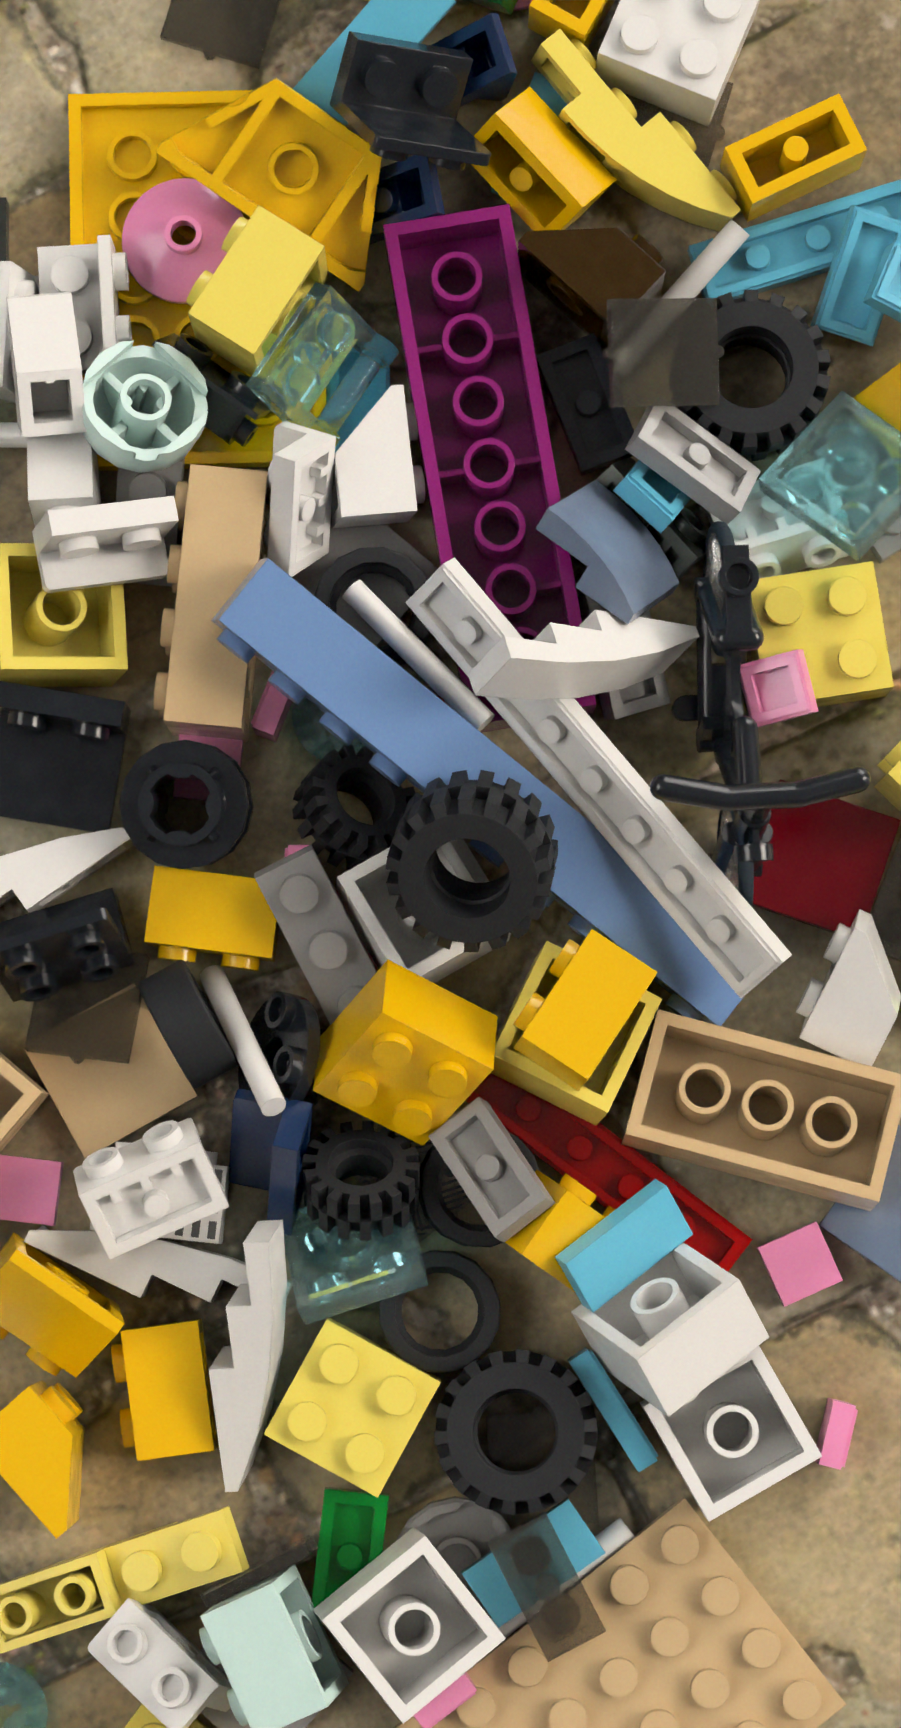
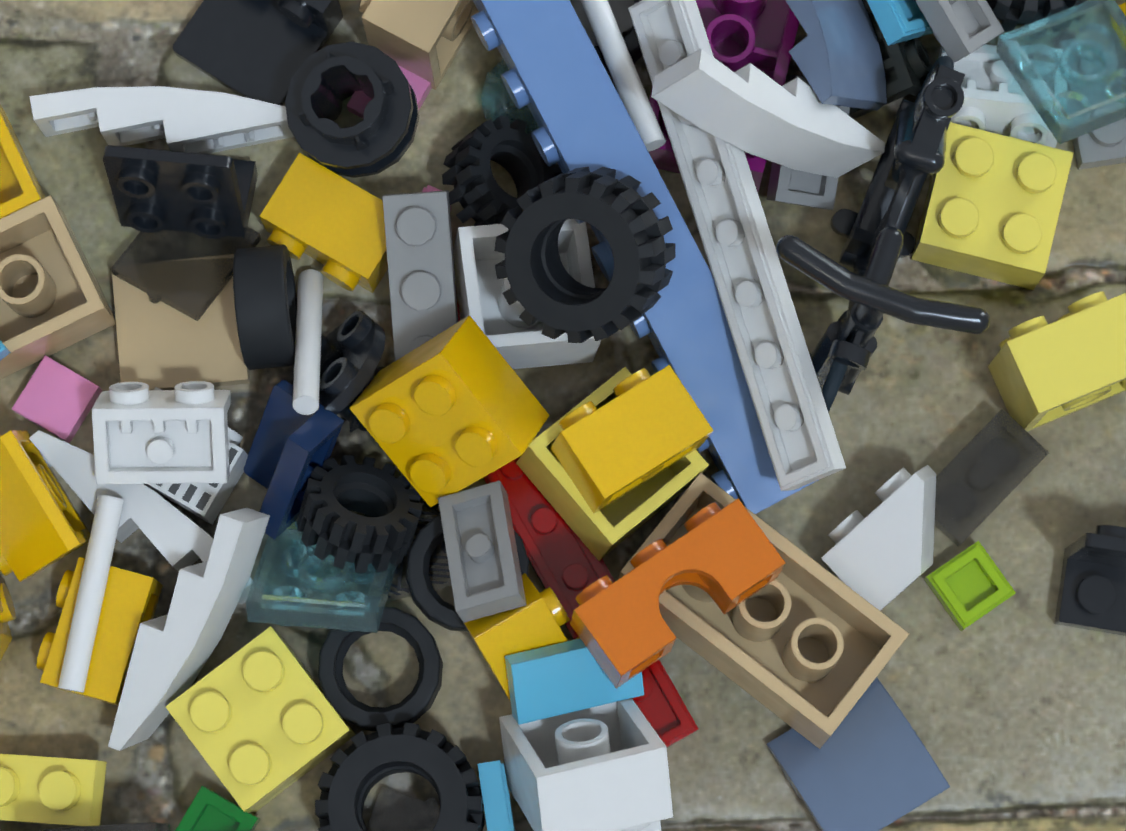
camera: 25 degrees right, 5 degrees down
(148, 1361) = (91, 593): none -> white bar
(270, 713) = (469, 66): bright pink tile -> none
(712, 1082) = (719, 554): none -> orange arch
(778, 688) = (937, 227): bright pink tile -> none
(799, 1264) = (733, 771): bright pink tile -> none
(825, 862) = (910, 406): dark red tile -> none

